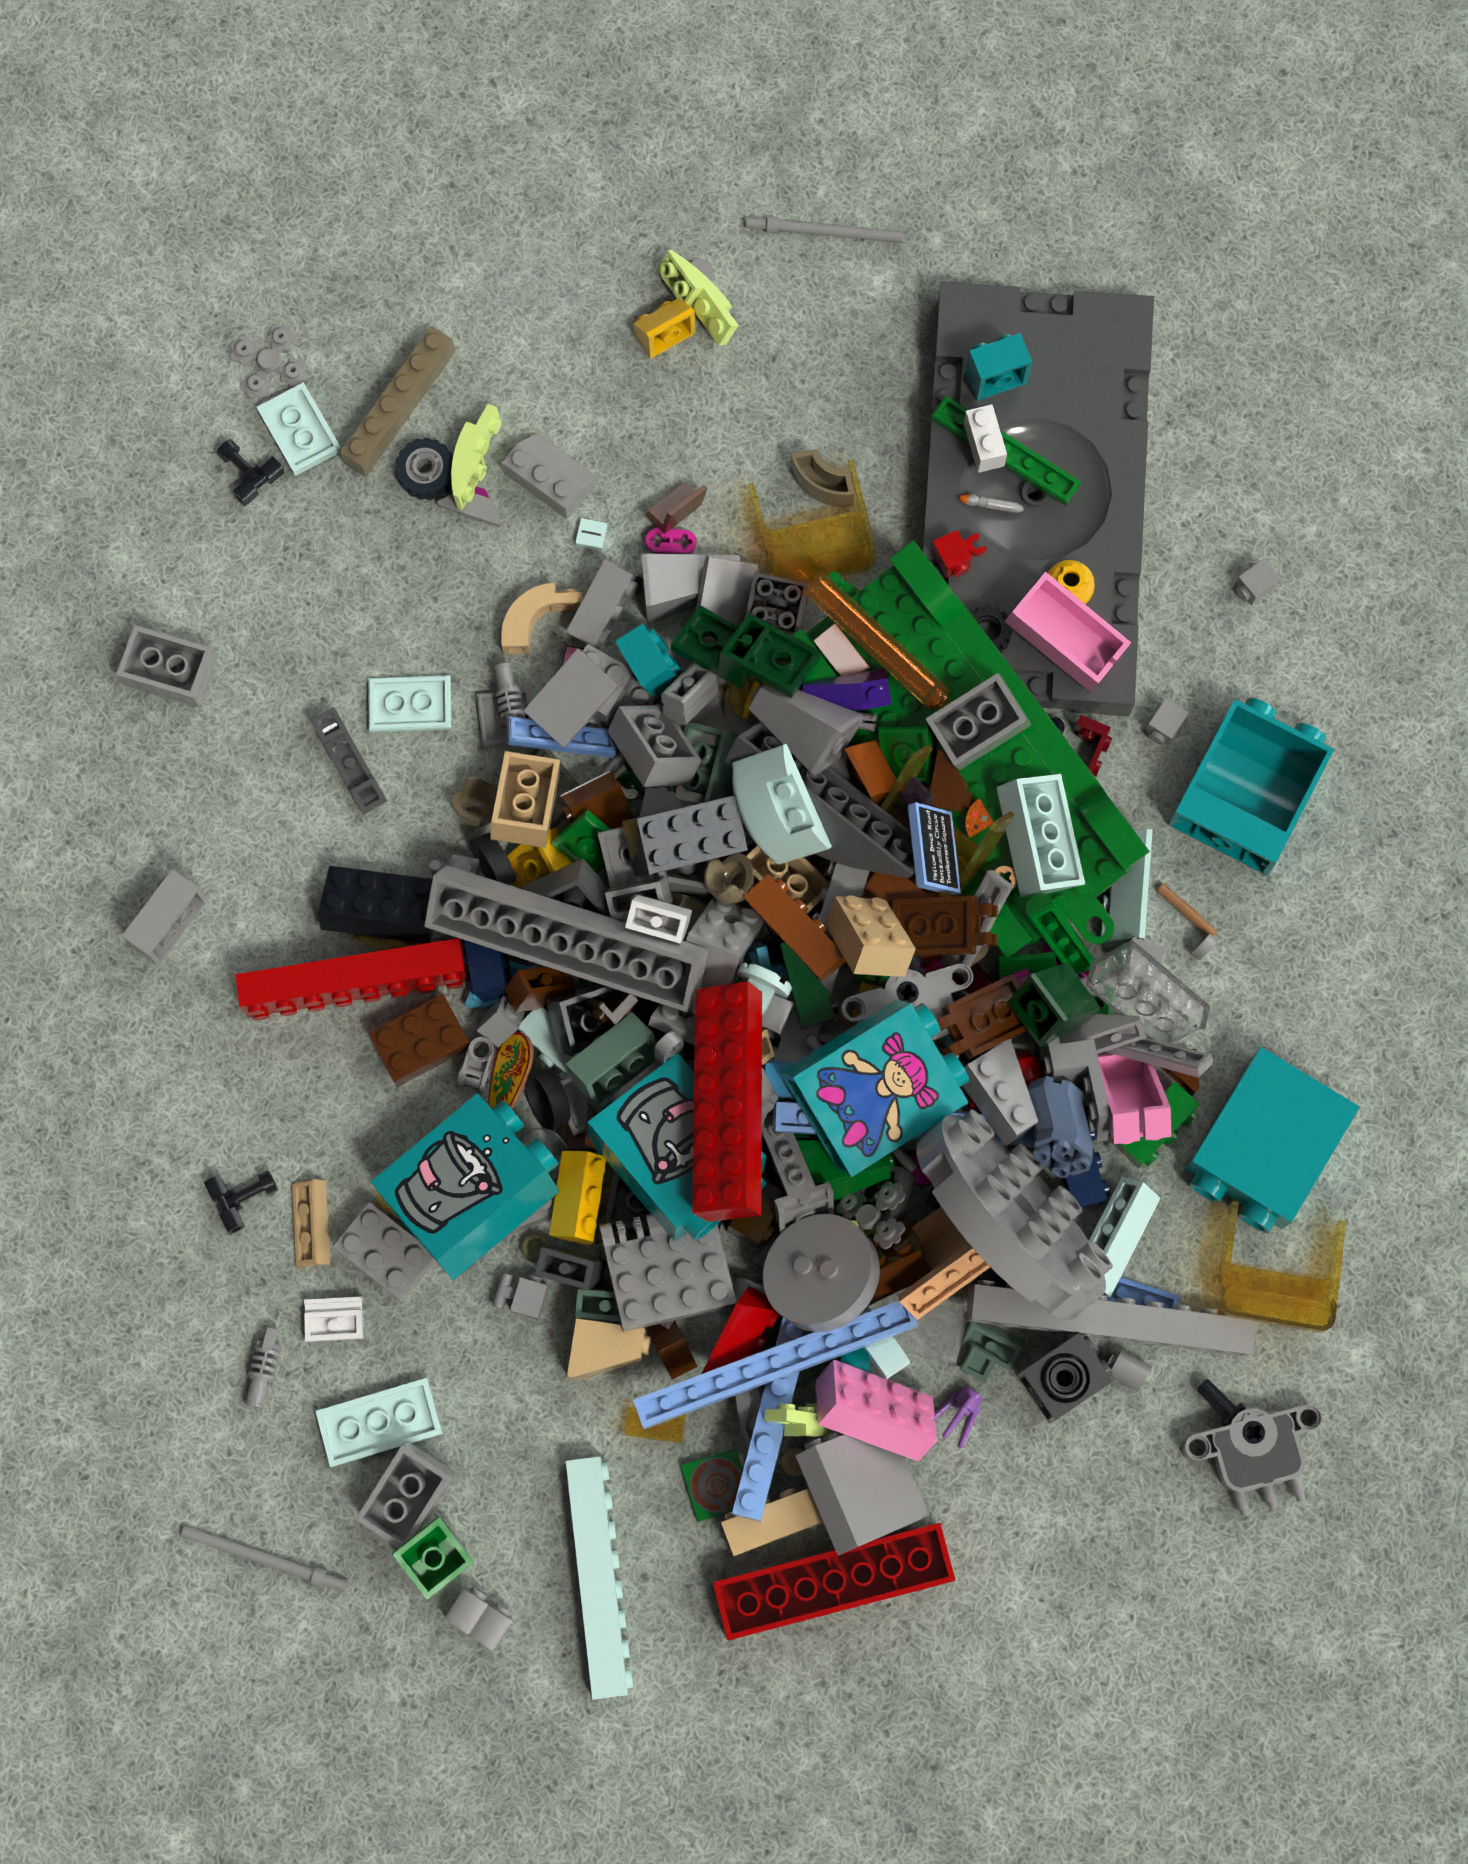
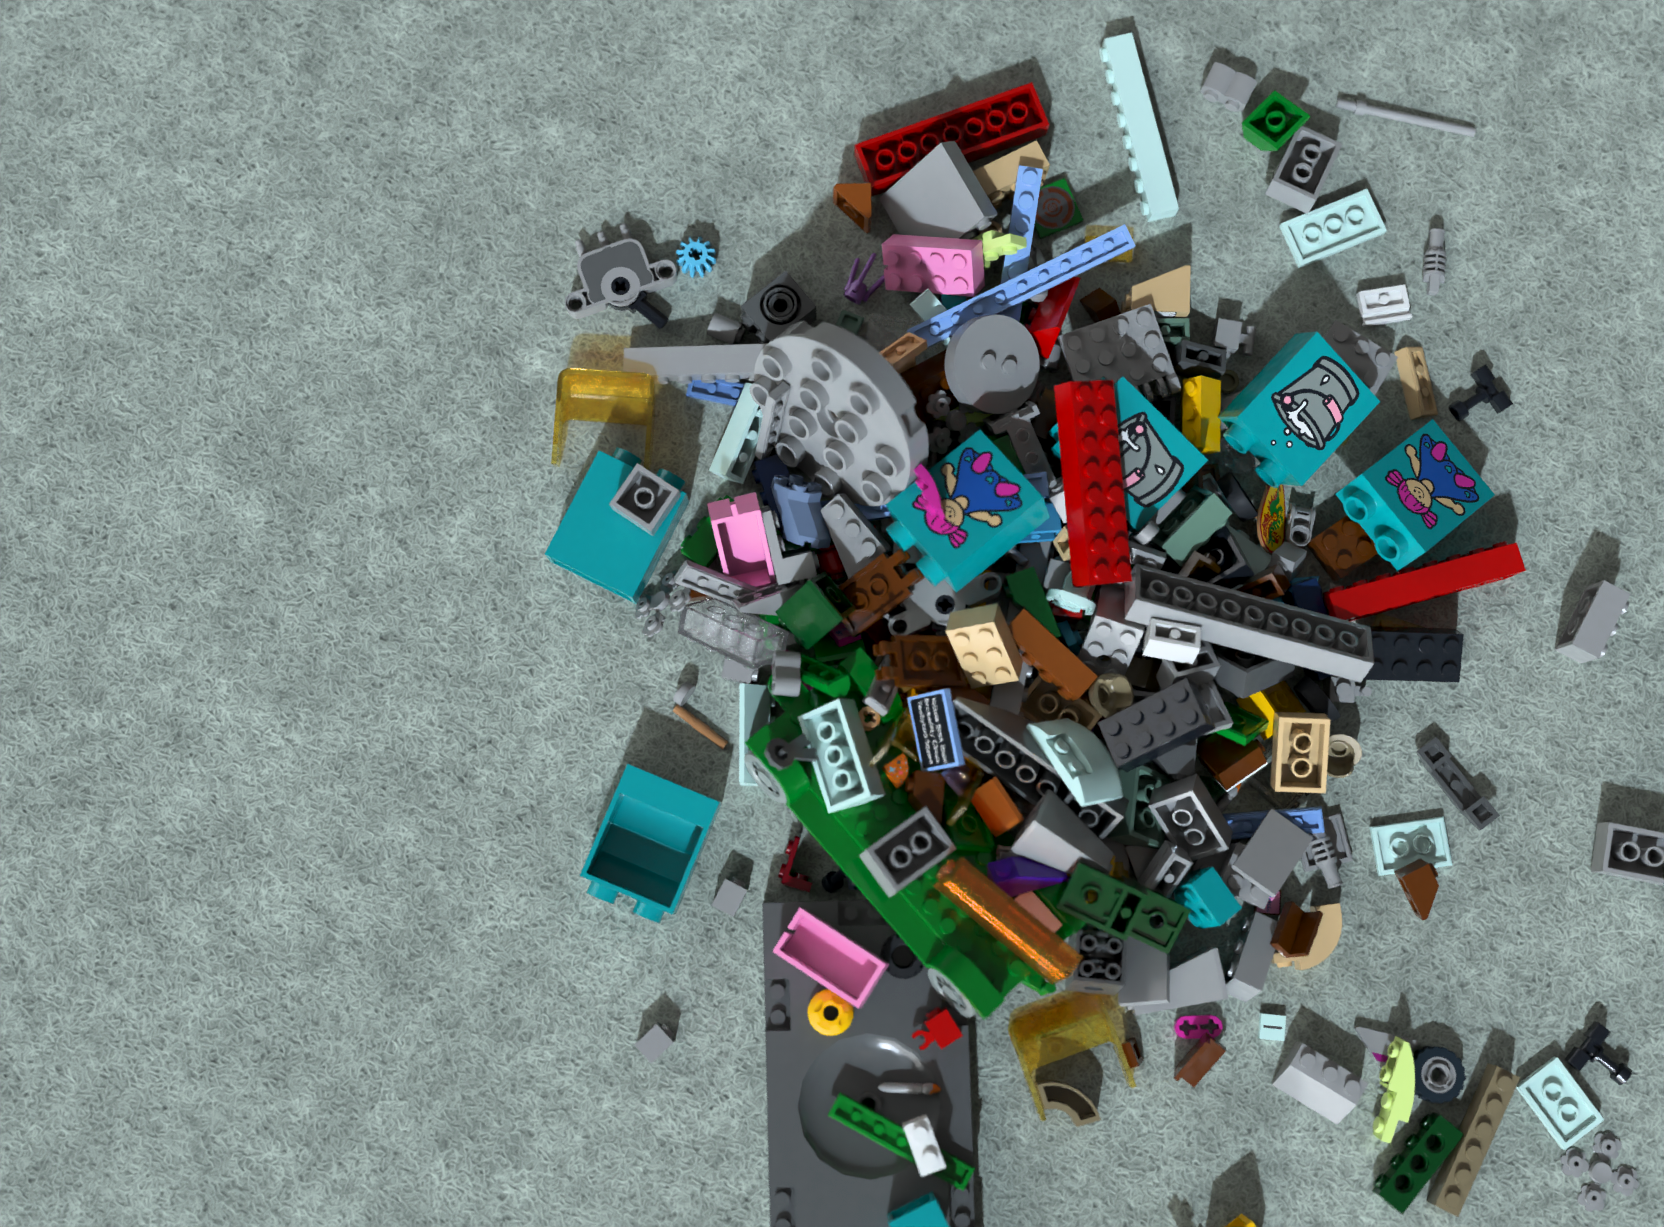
camera: 170 degrees right, 5 degrees up
(346, 1073) = (1414, 495): none -> teal brick
(411, 658) = (1419, 886): none -> reddish brown slope
(483, 355) = (1430, 1160): none -> dark green brick
(555, 620) = (1295, 931): none -> reddish brown panel
(746, 521) = (1132, 1052): none -> reddish brown tile
(916, 1094) = (930, 493): none -> dark pink slope
(958, 1507) = (855, 202): none -> dark orange slope
(1087, 1229) = (772, 420): none -> light grey tile
(1094, 933) = (786, 673): none -> light grey axle
(1111, 833) = (781, 754): none -> dark grey piece
(1154, 1474) = (687, 260): none -> medium azure gear
(1227, 1046) = (659, 602): none -> light grey plant
(1242, 1149) = (645, 499): none -> light grey brick

